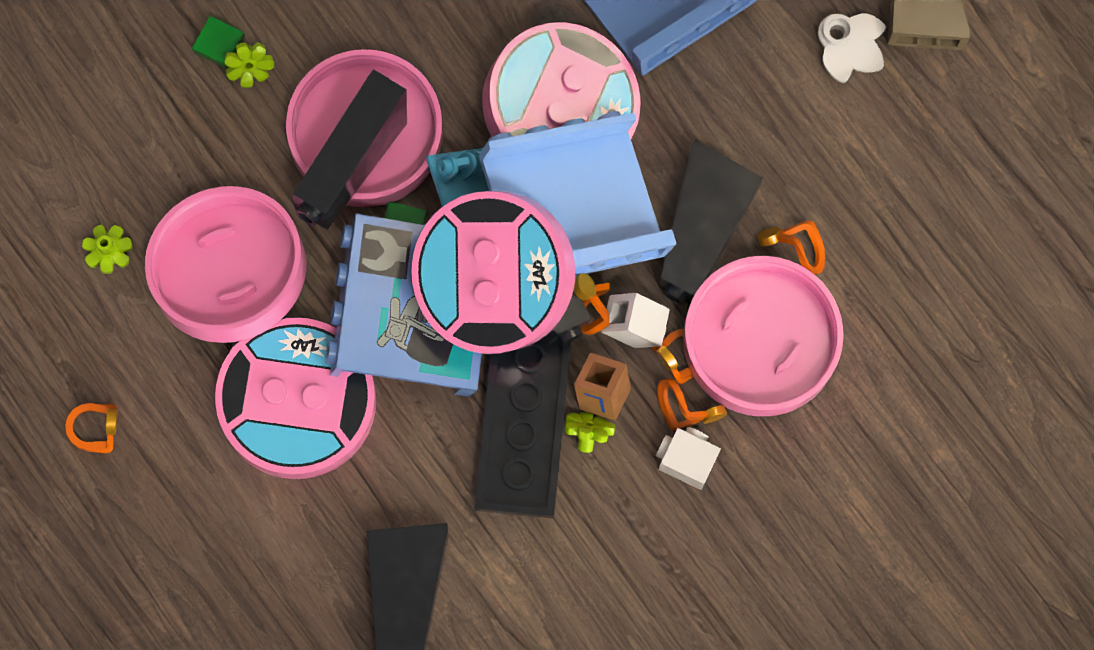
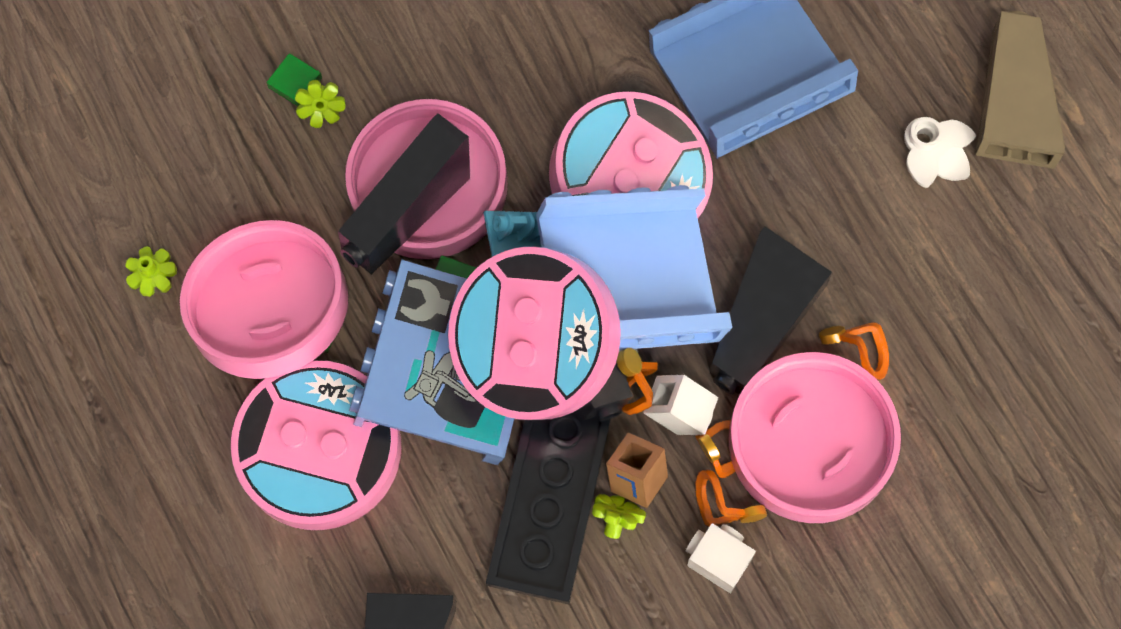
camera: 15 degrees right, 5 degrees down
(111, 426) = (119, 450): orange piece -> none

